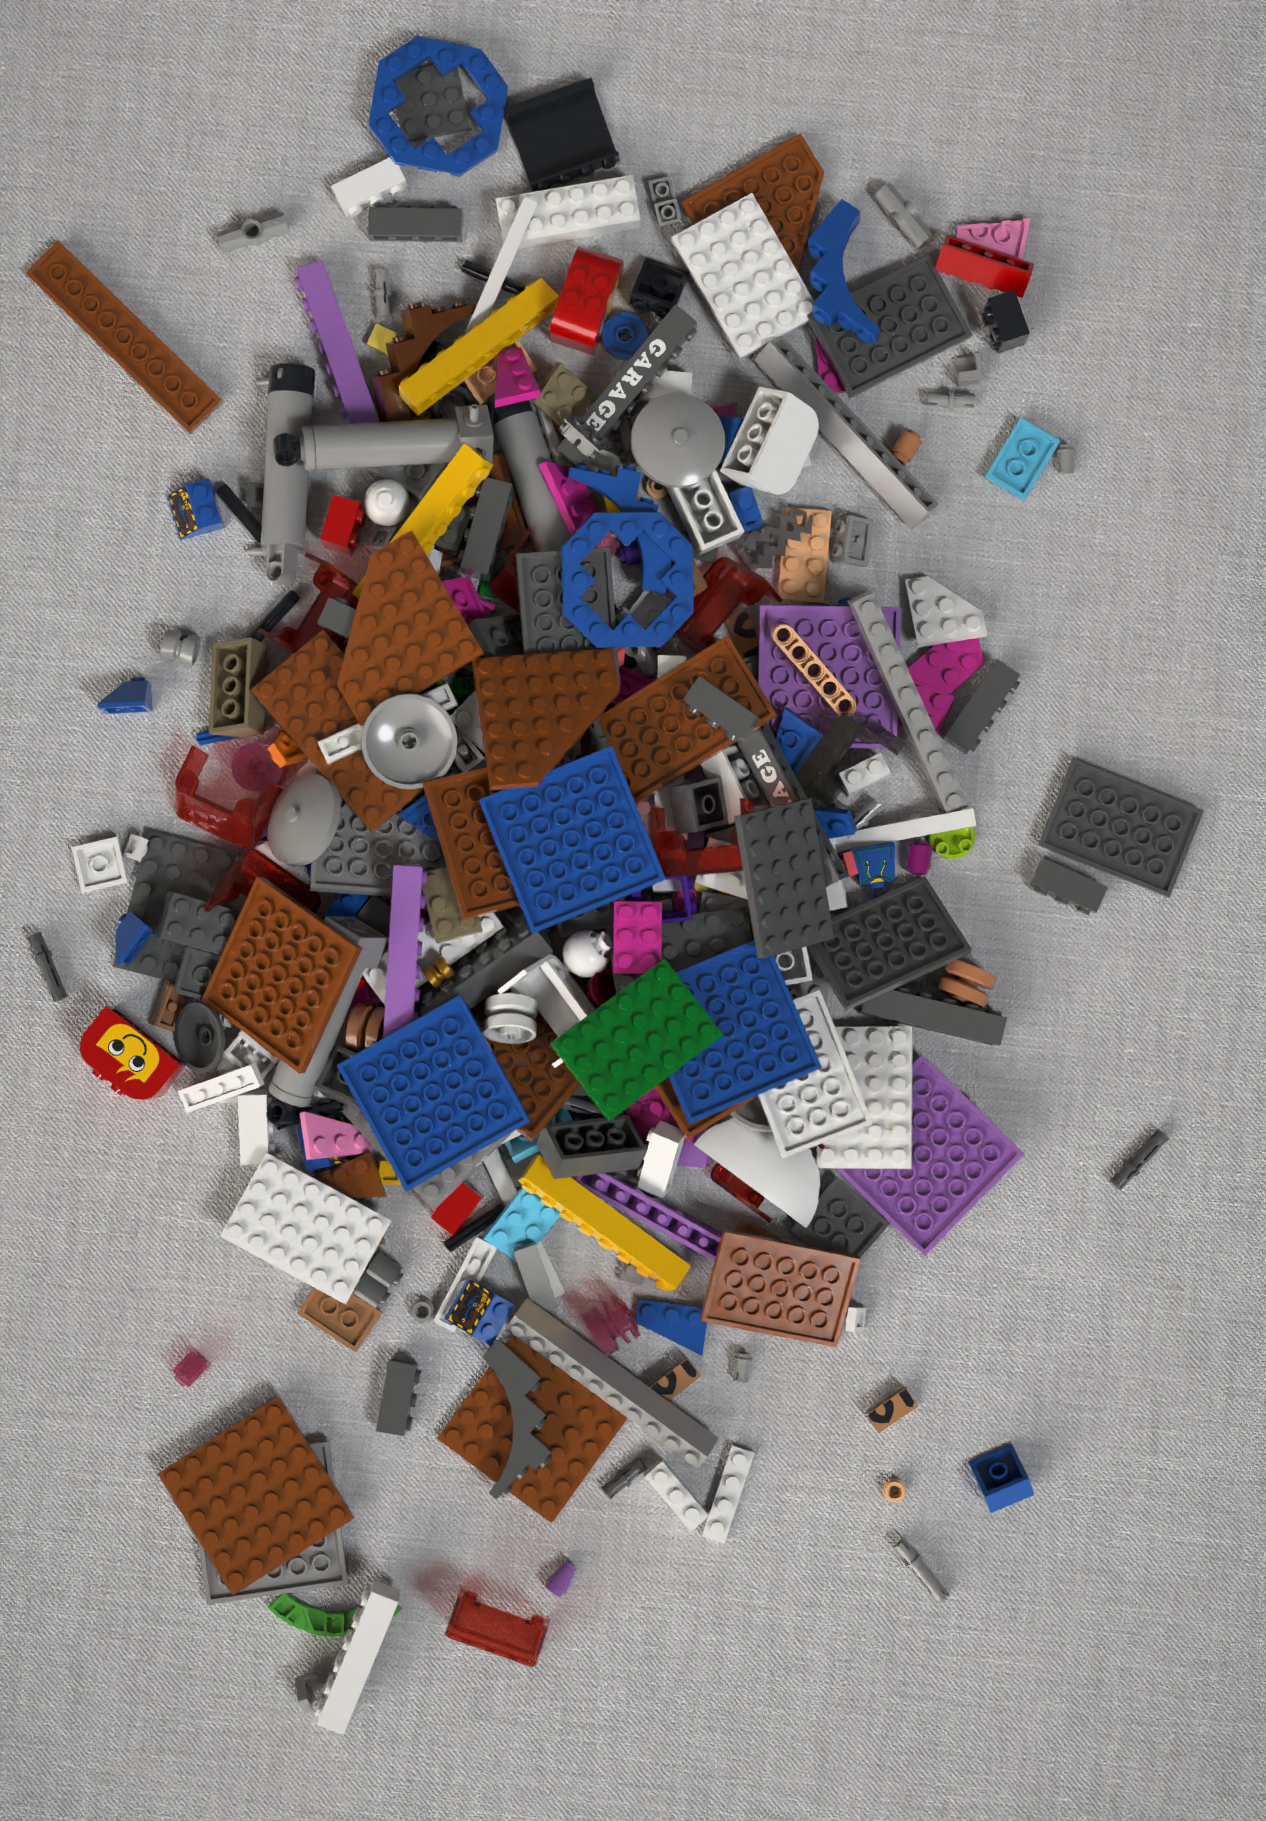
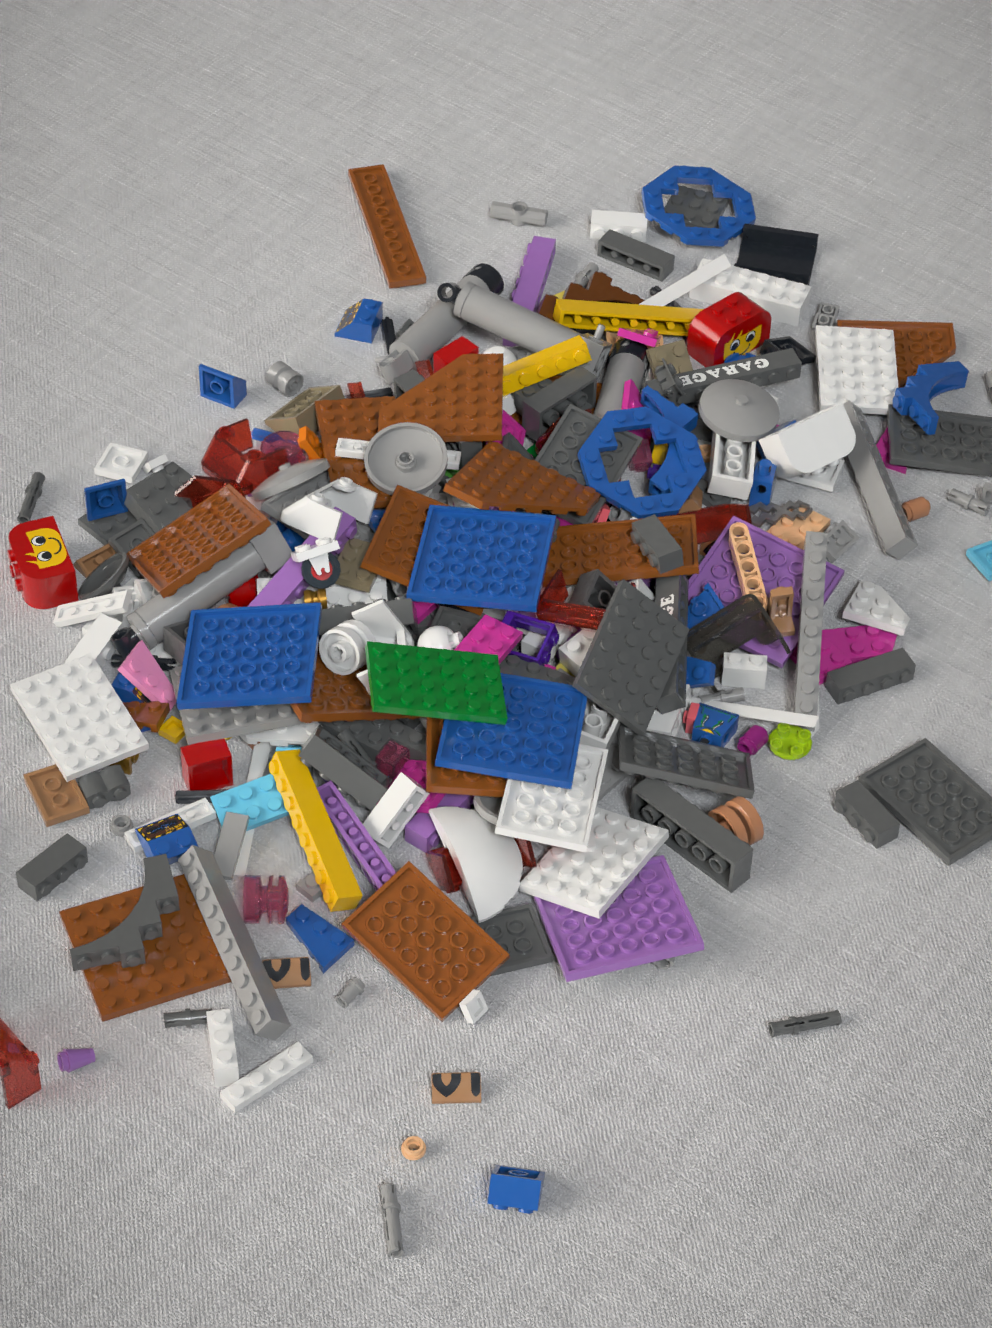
camera: 25 degrees right, 40 degrees down
(373, 892) = (316, 511): none -> white windscreen
(421, 944) = (319, 565): none -> plate
(869, 699) = (780, 609): none -> medium nougat bracket

